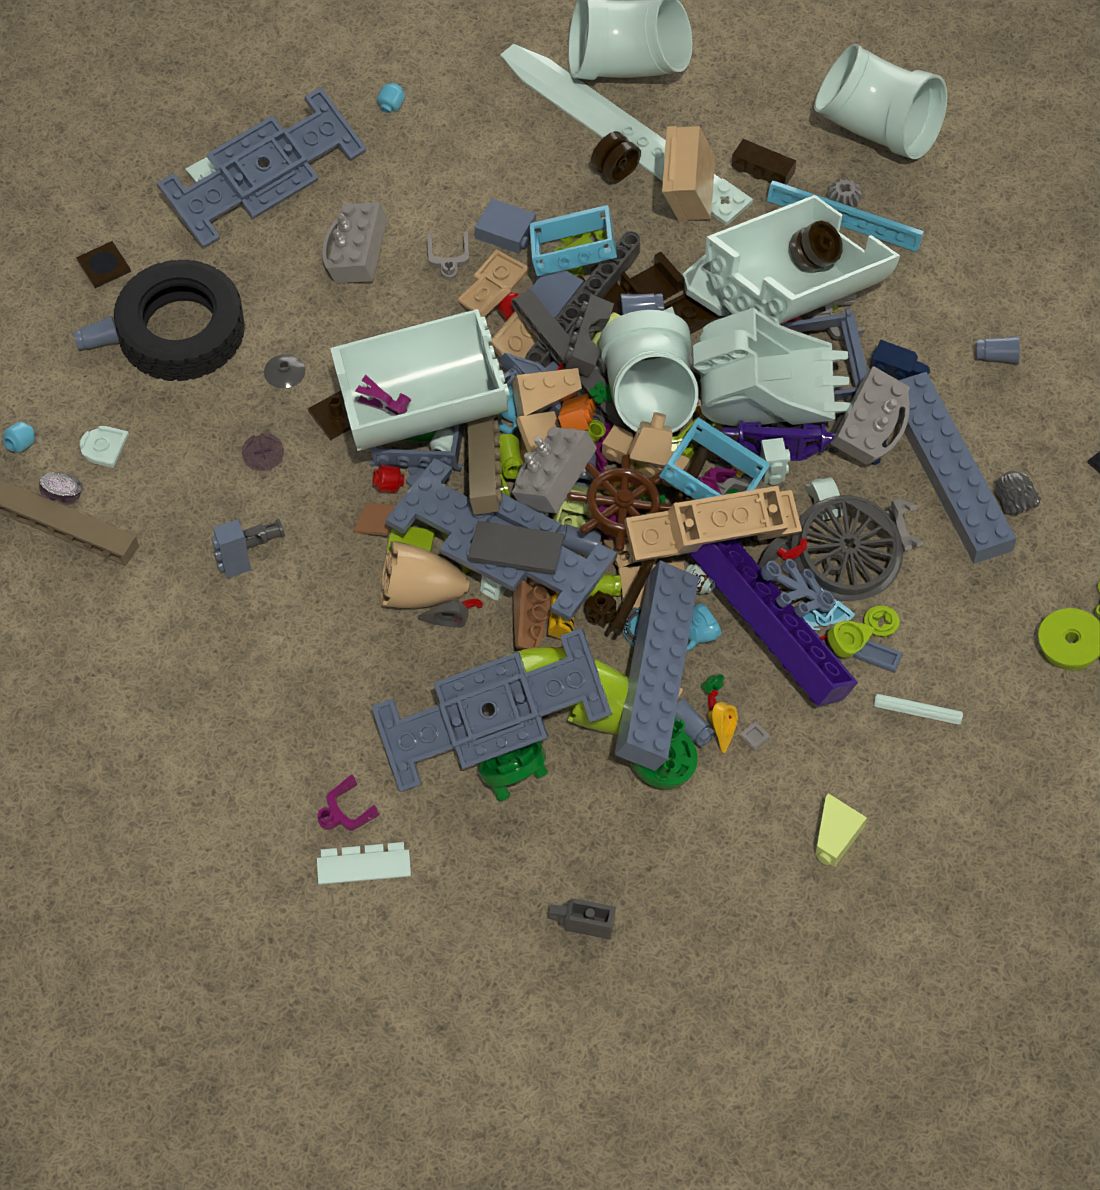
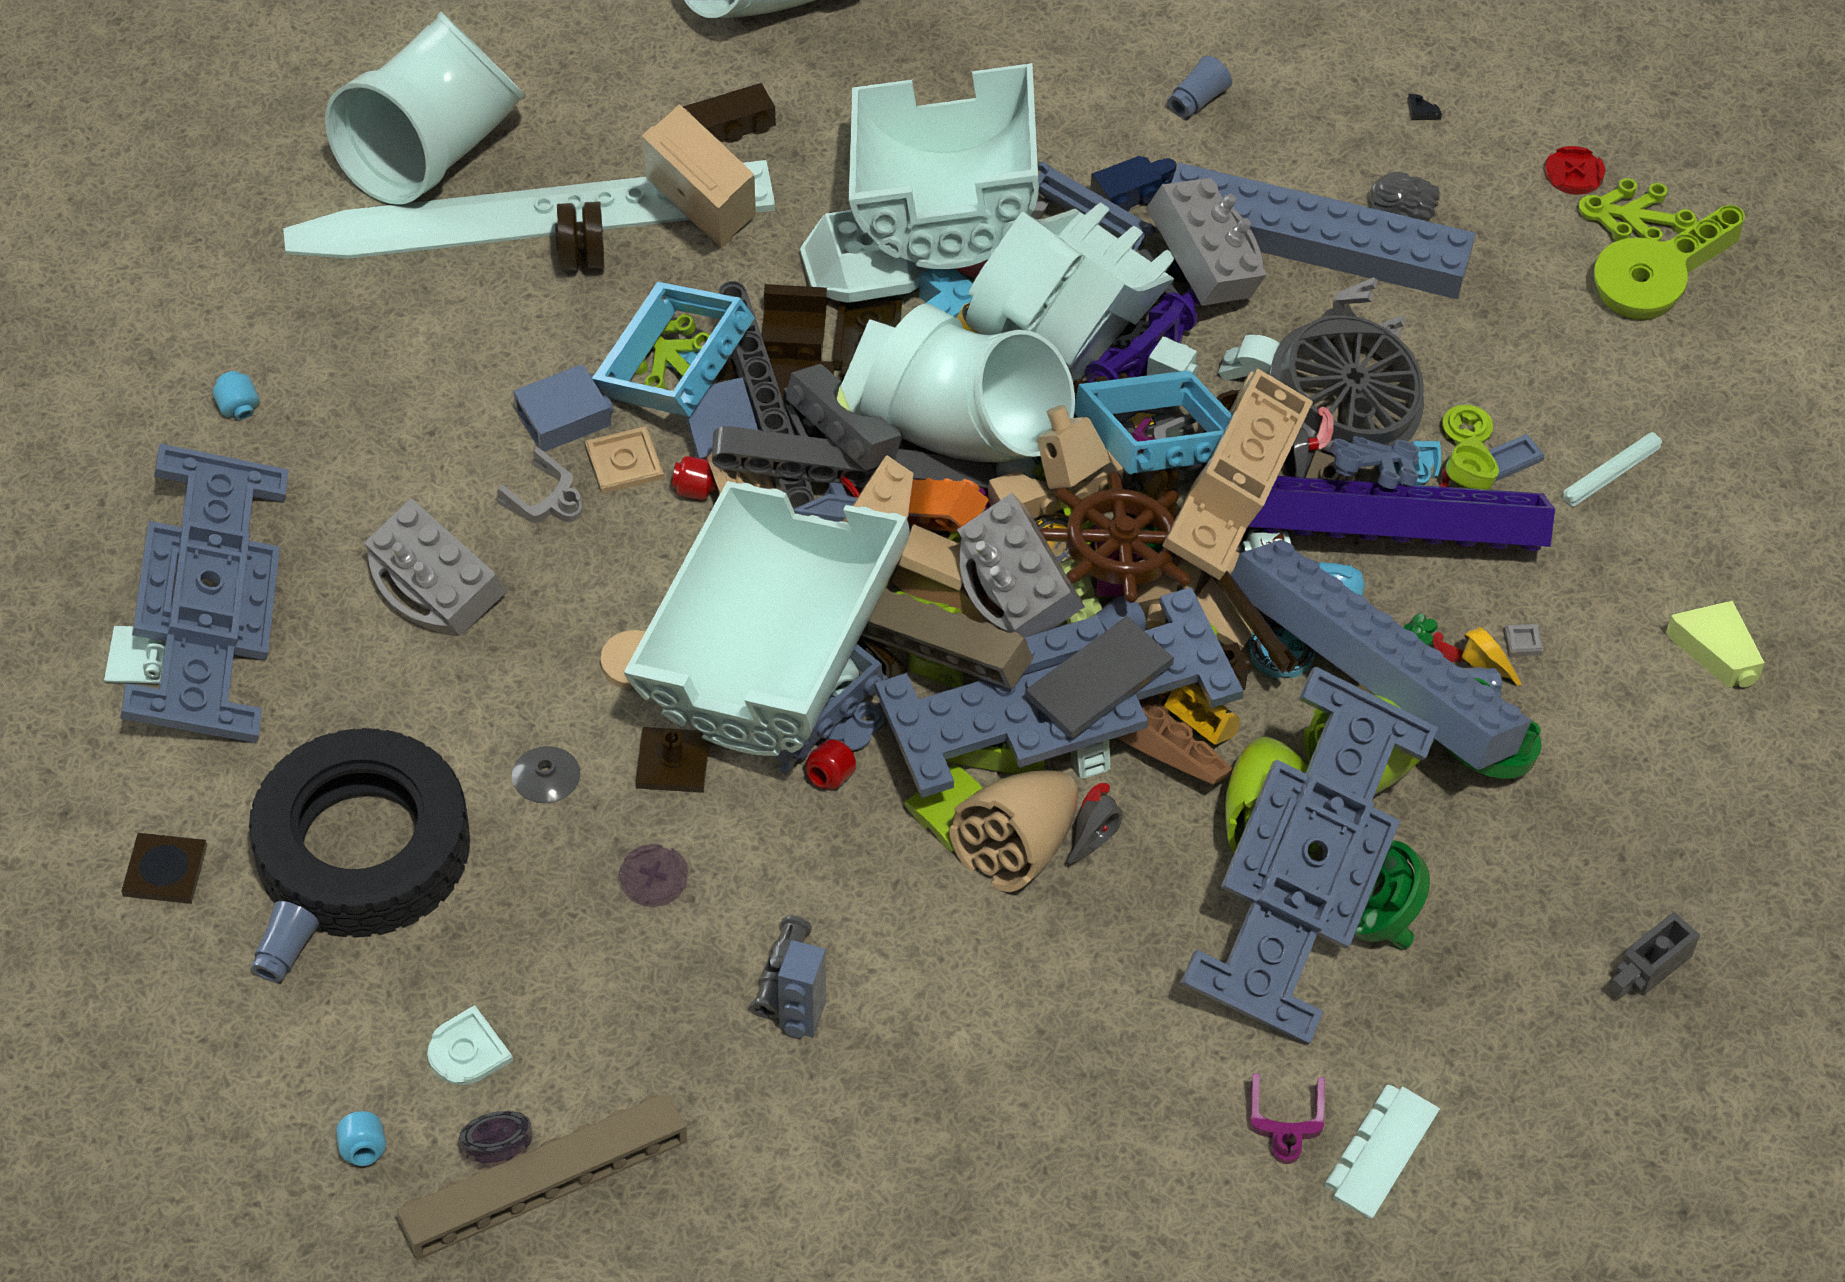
camera: 55 degrees left, 5 degrees down
(373, 519) = (879, 814): medium nougat piece -> none
(381, 399) = (744, 674): magenta piece -> none
(484, 295) = (651, 493): tan tile -> none
(601, 393) = (926, 464): green plant -> none
(640, 302) = (831, 346): sand blue plant -> none
(816, 246) = (916, 138): dark brown wheel -> none
(845, 192) = (845, 73): light grey gear -> none
(853, 218) = (836, 111): medium azure plate -> none

